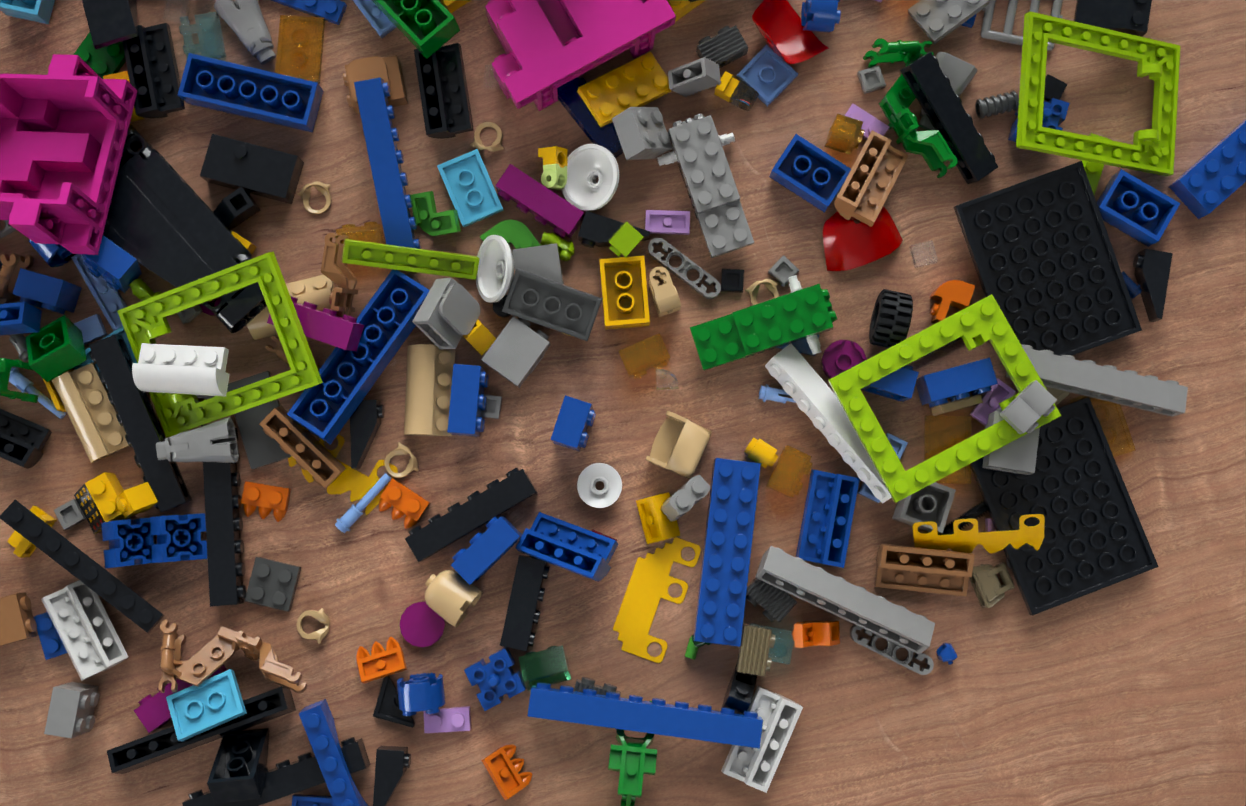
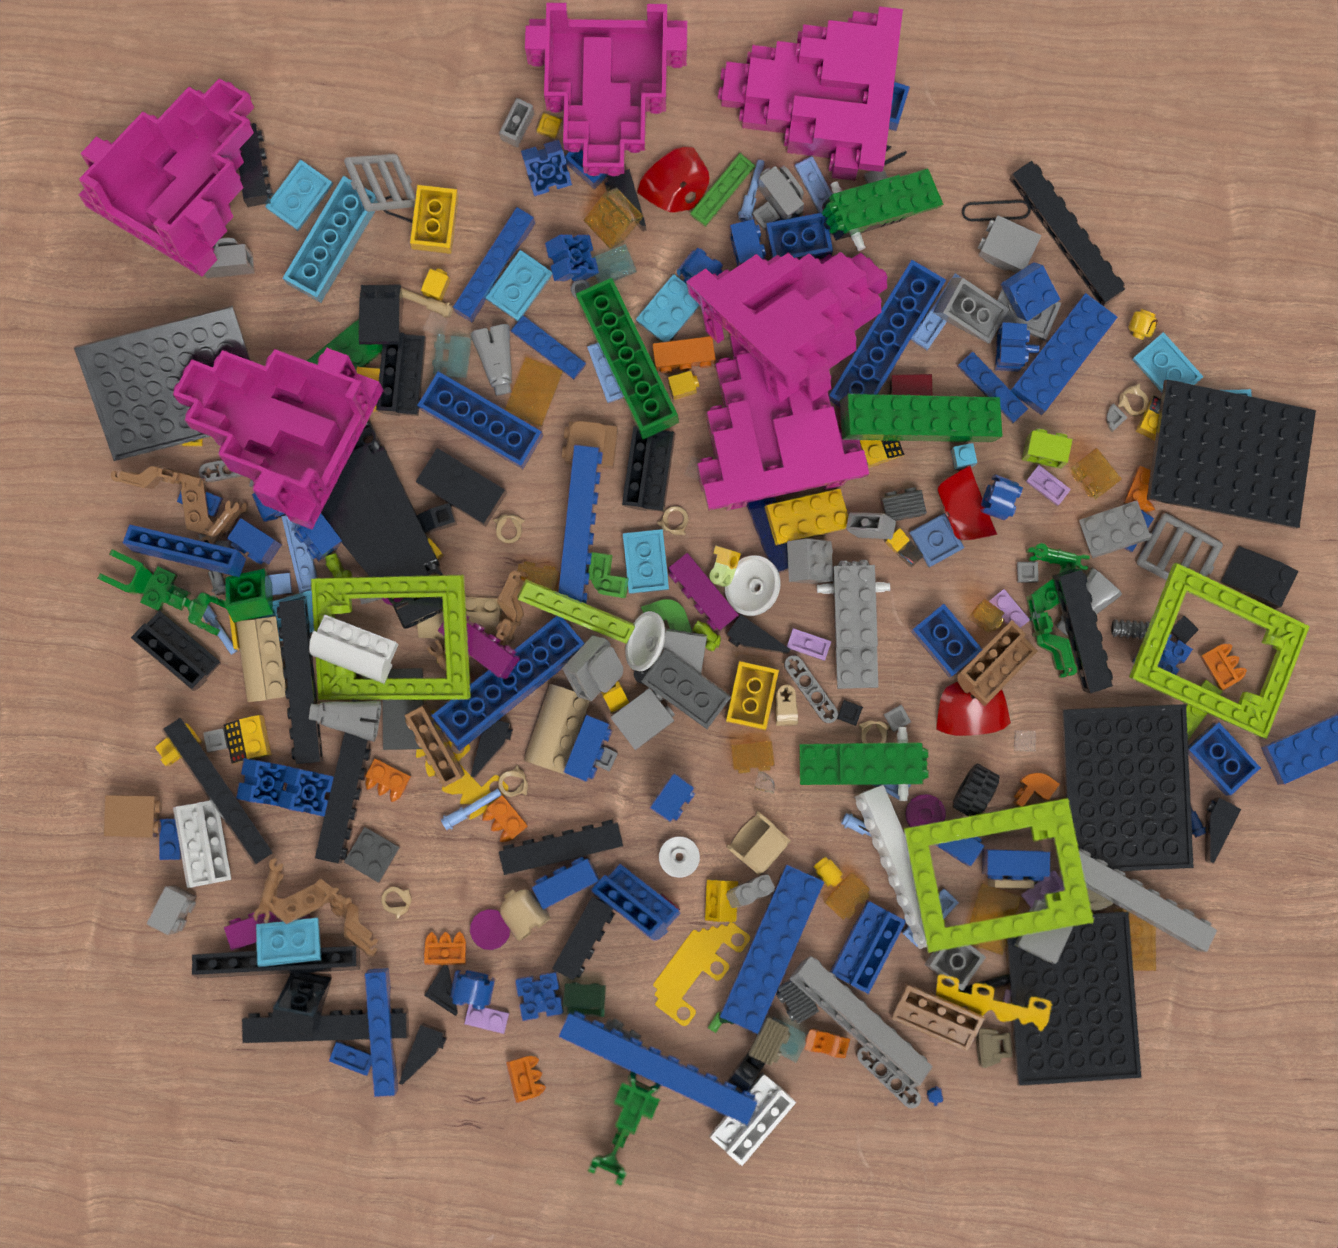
camera: 20 degrees right, 0 degrees up
(136, 500) = (279, 747): yellow brick -> none
(625, 239) = (766, 651): lime brick -> none
(1028, 408) = (1065, 907): light grey brick -> none
(1104, 115) = (1222, 667): none -> orange plate

